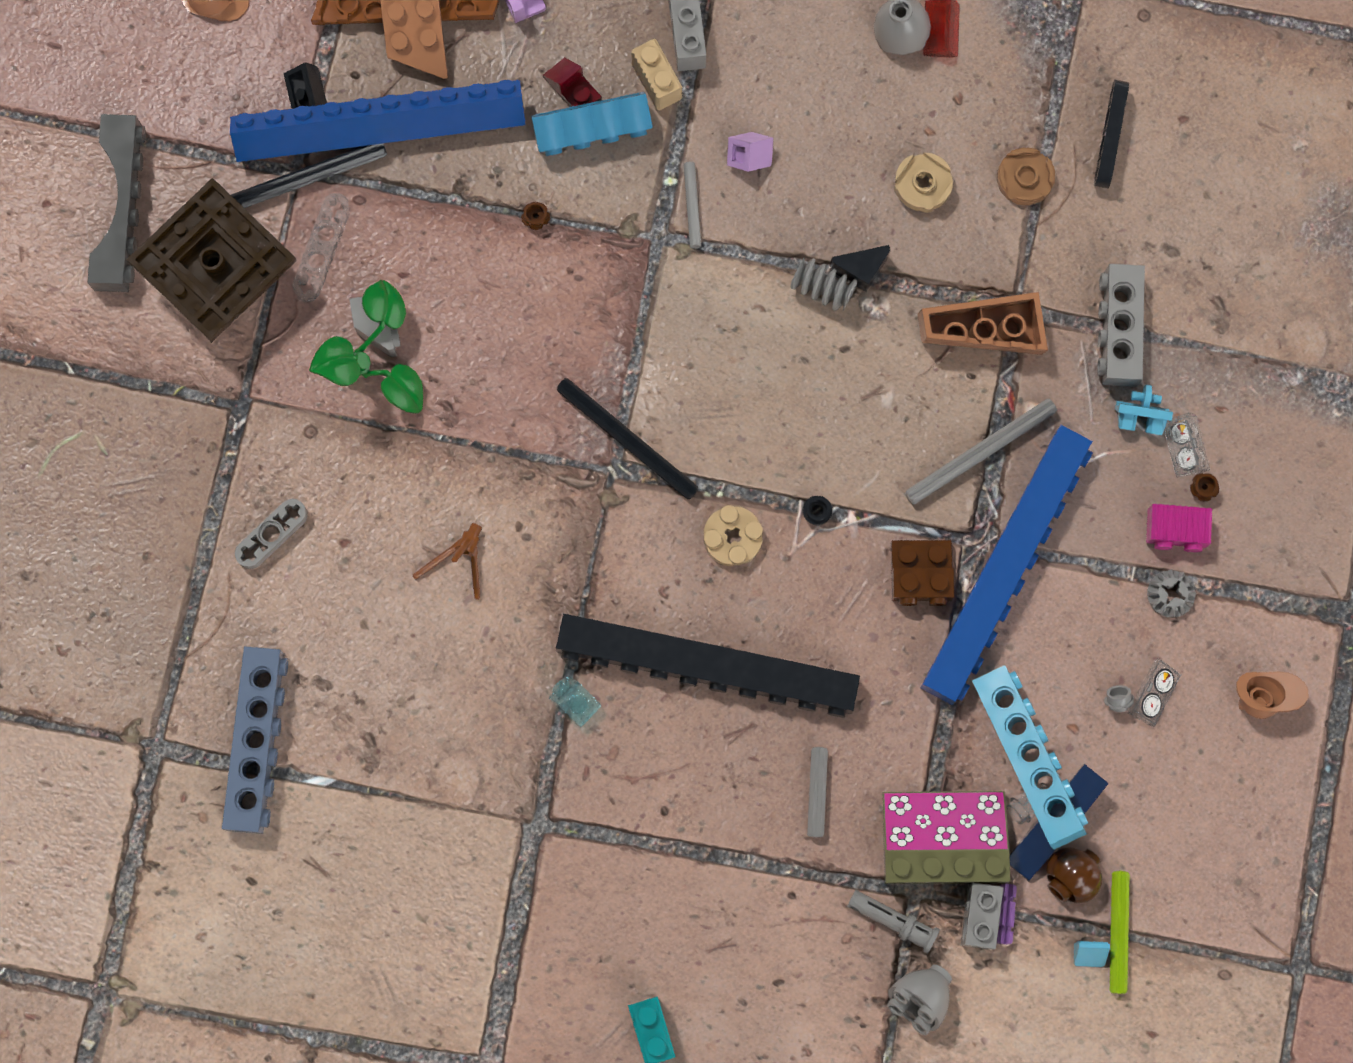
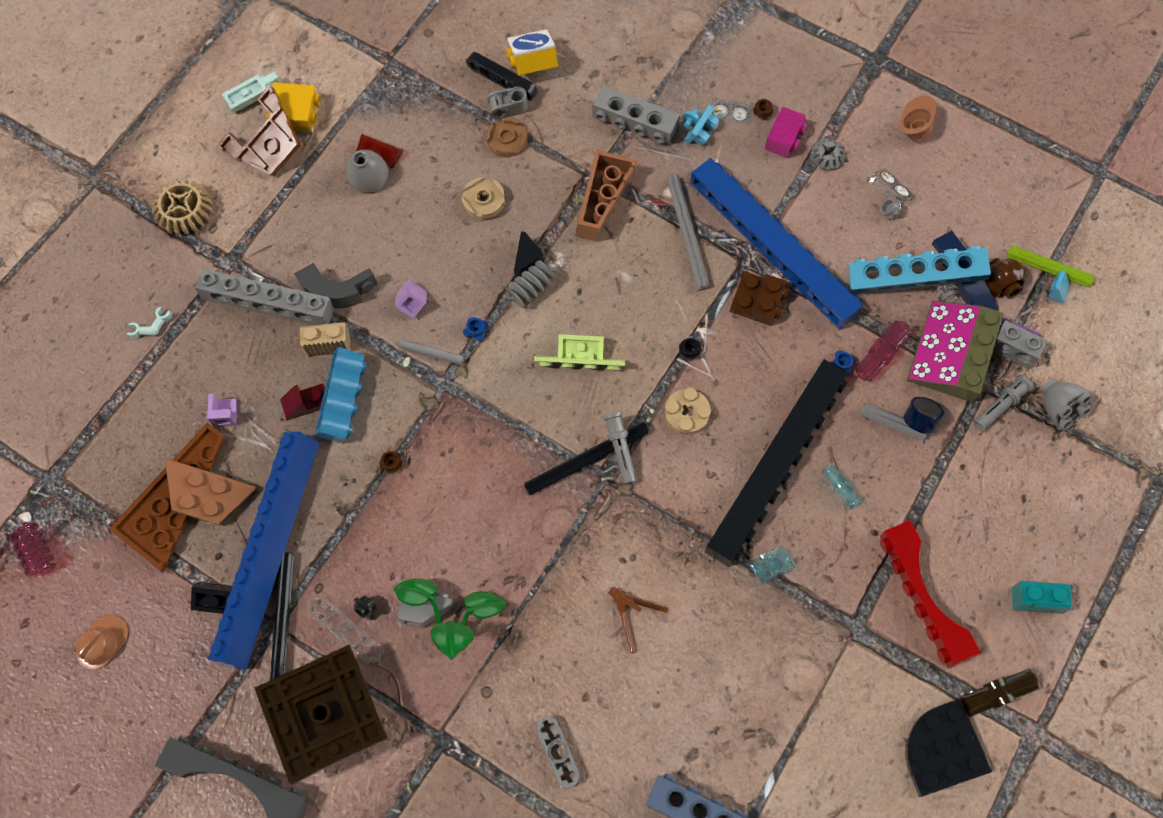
camera: 65 degrees left, 10 degrees down
(352, 258) = (364, 607): none -> pearl dark grey plate
(429, 966) = (944, 749): none -> black plate
(517, 1011) = (999, 692): none -> dark brown piece
(652, 850) = (952, 640): none -> red arch
(662, 462) = (629, 474): none -> light grey pin
(706, 752) = (841, 486): none -> clear light blue pin
(721, 35) = (342, 293): none -> dark grey arch
(748, 238) = (475, 323): none -> blue plate
(759, 380) = (581, 350): none -> yellowish green bracket
(834, 822) = (923, 415): none -> clear blue piece
(880, 699) = (847, 358): none -> blue plate
(907, 749) = (883, 351): none -> clear pink piece
(1070, 152) = (507, 102): none -> light grey piece
(1157, 157) = (531, 52): none -> piece

